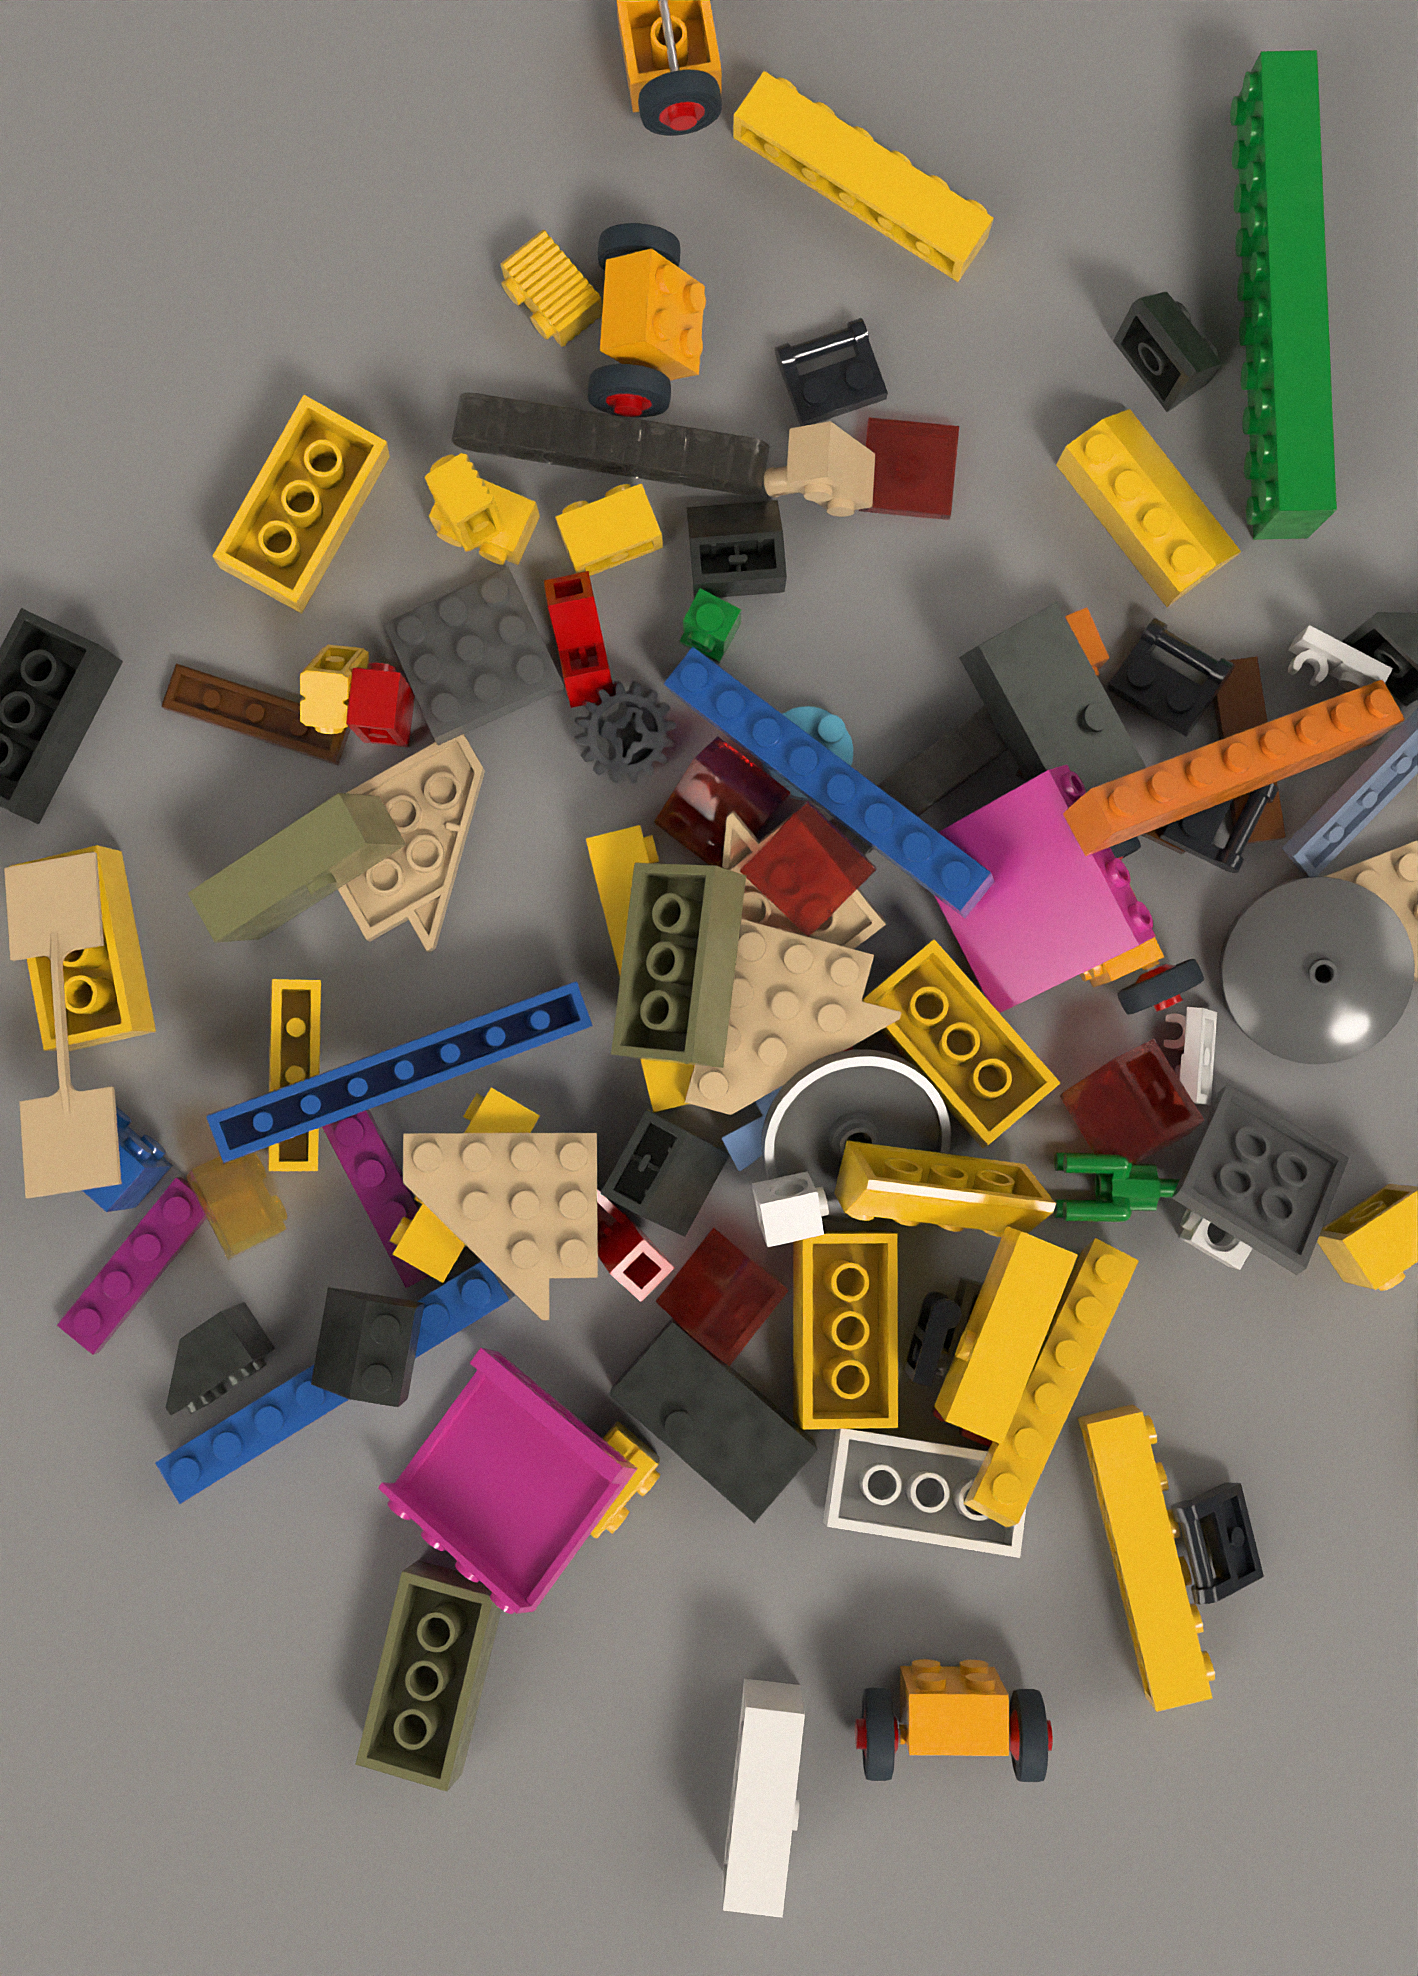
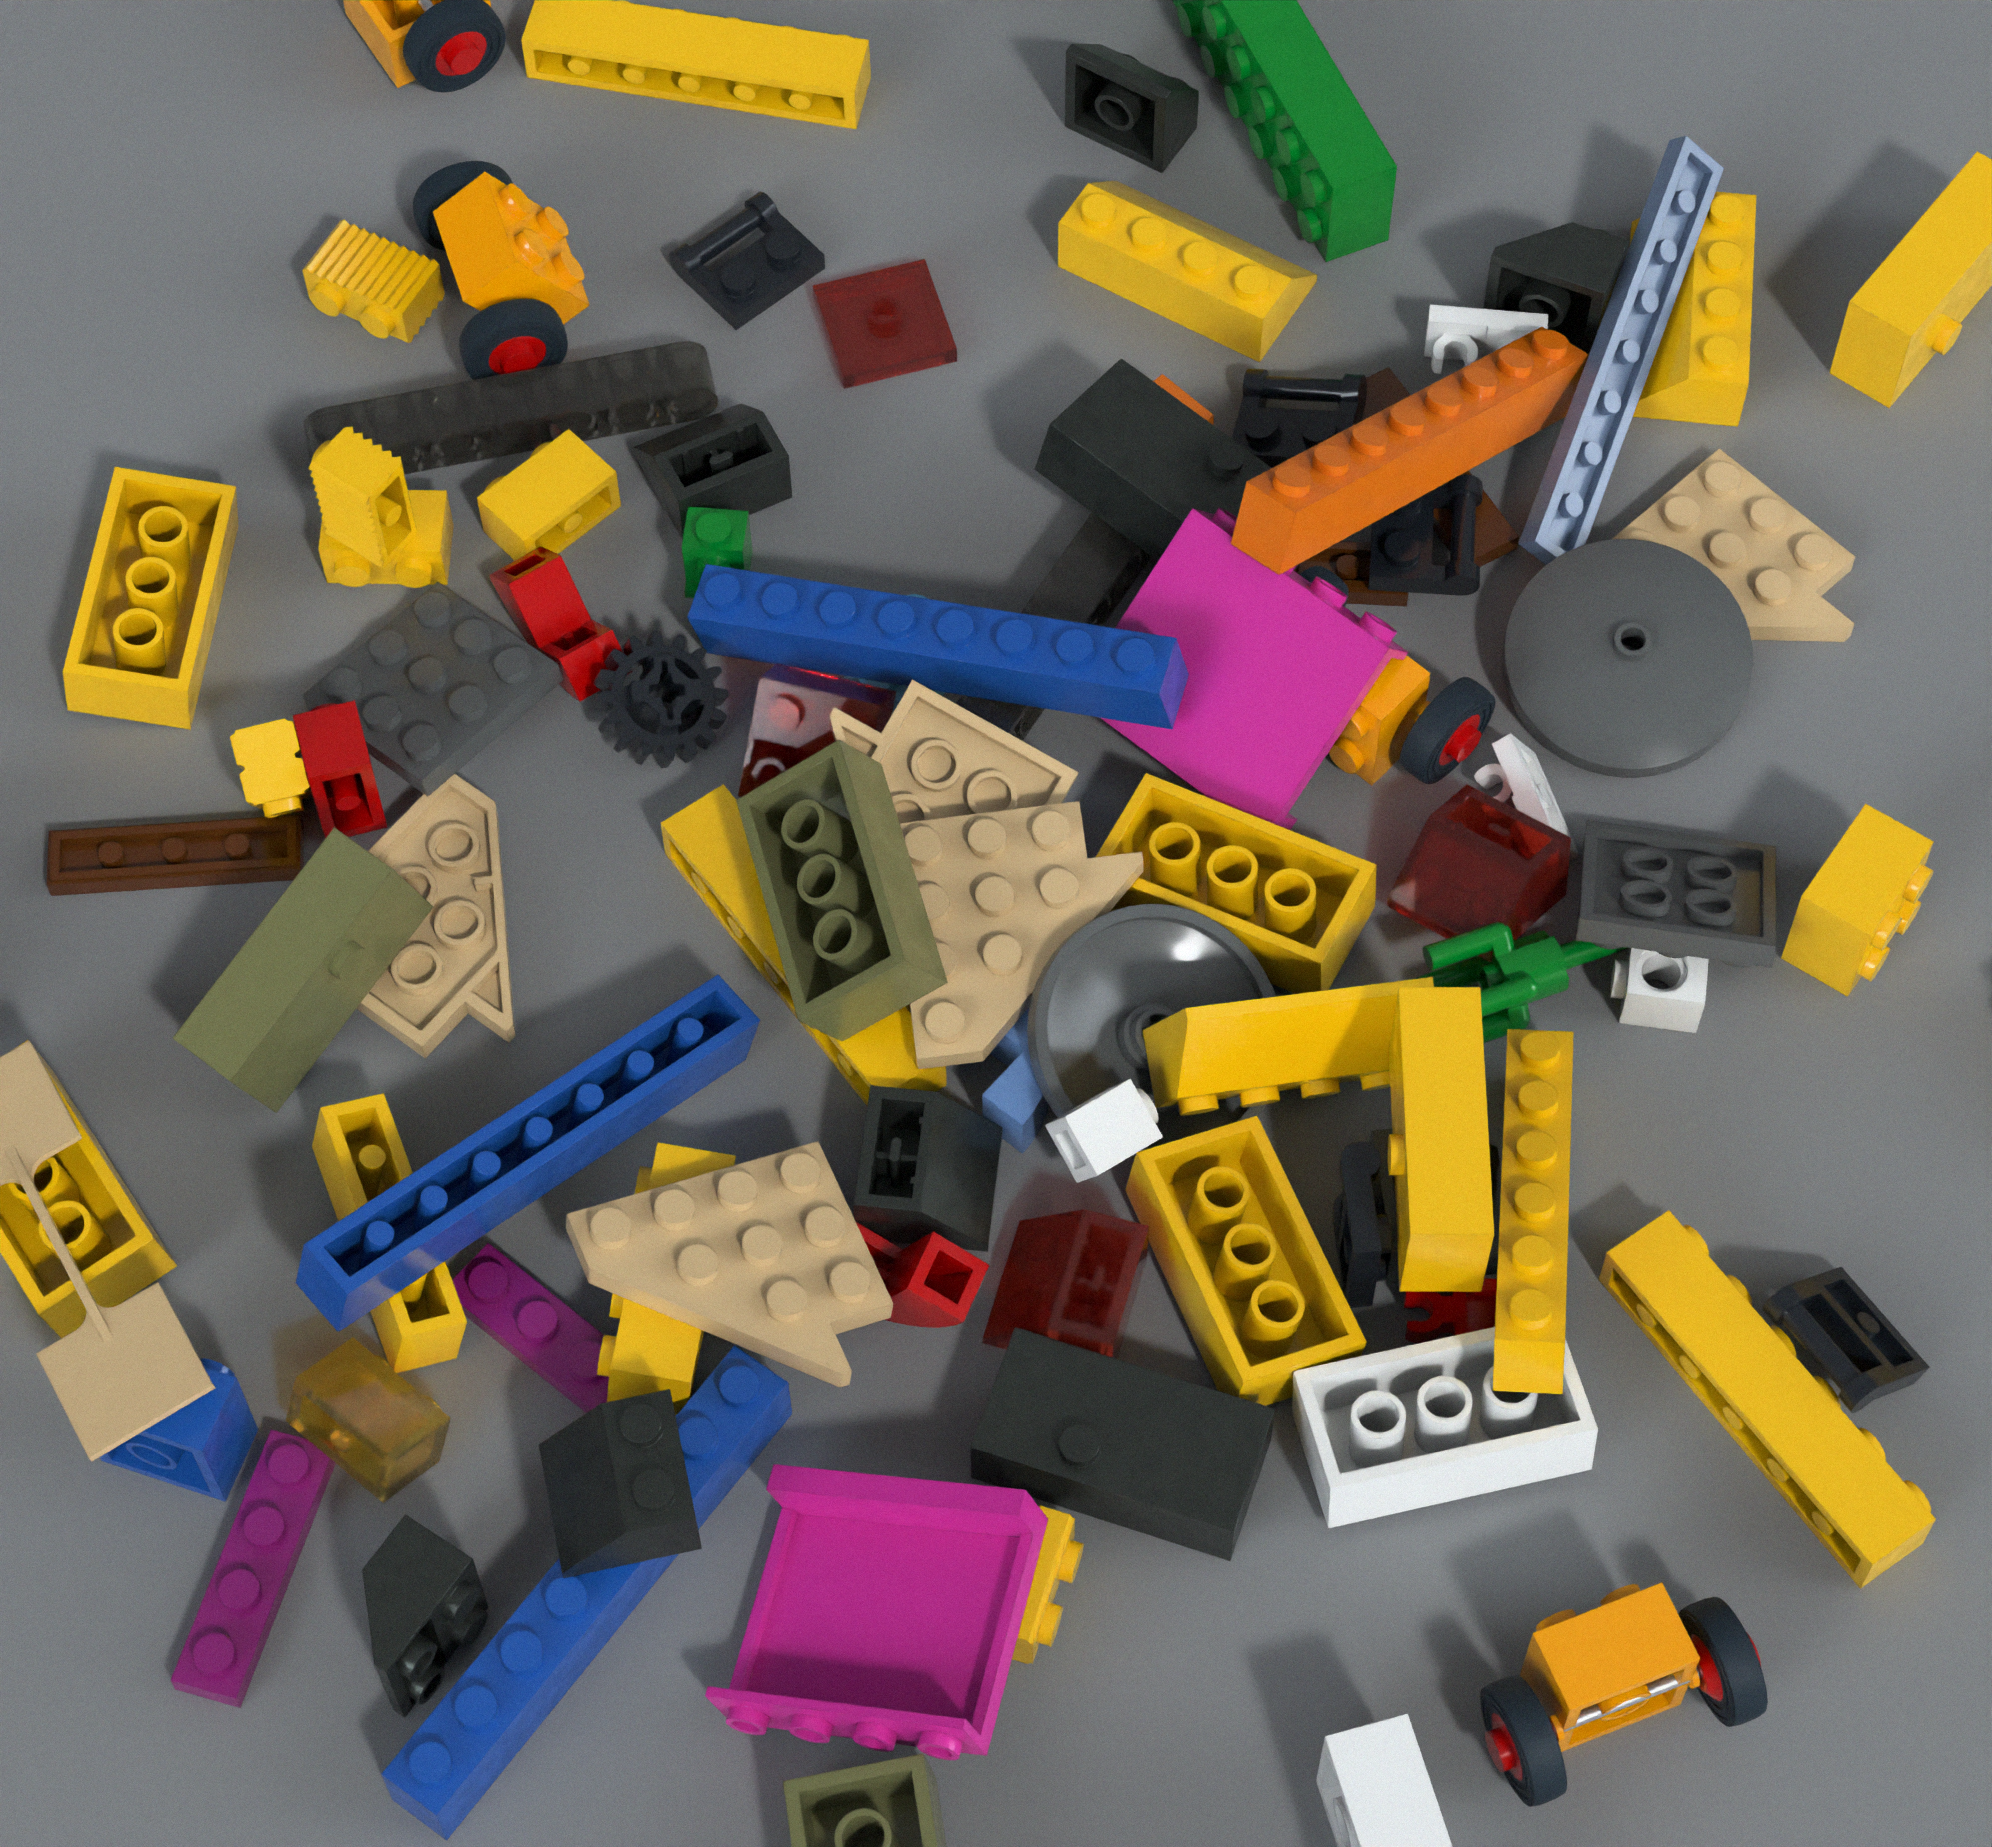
camera: 25 degrees left, 25 degrees down
(808, 868) = (954, 733): clear red plate -> none
(826, 469) = (784, 339): tan brick -> none

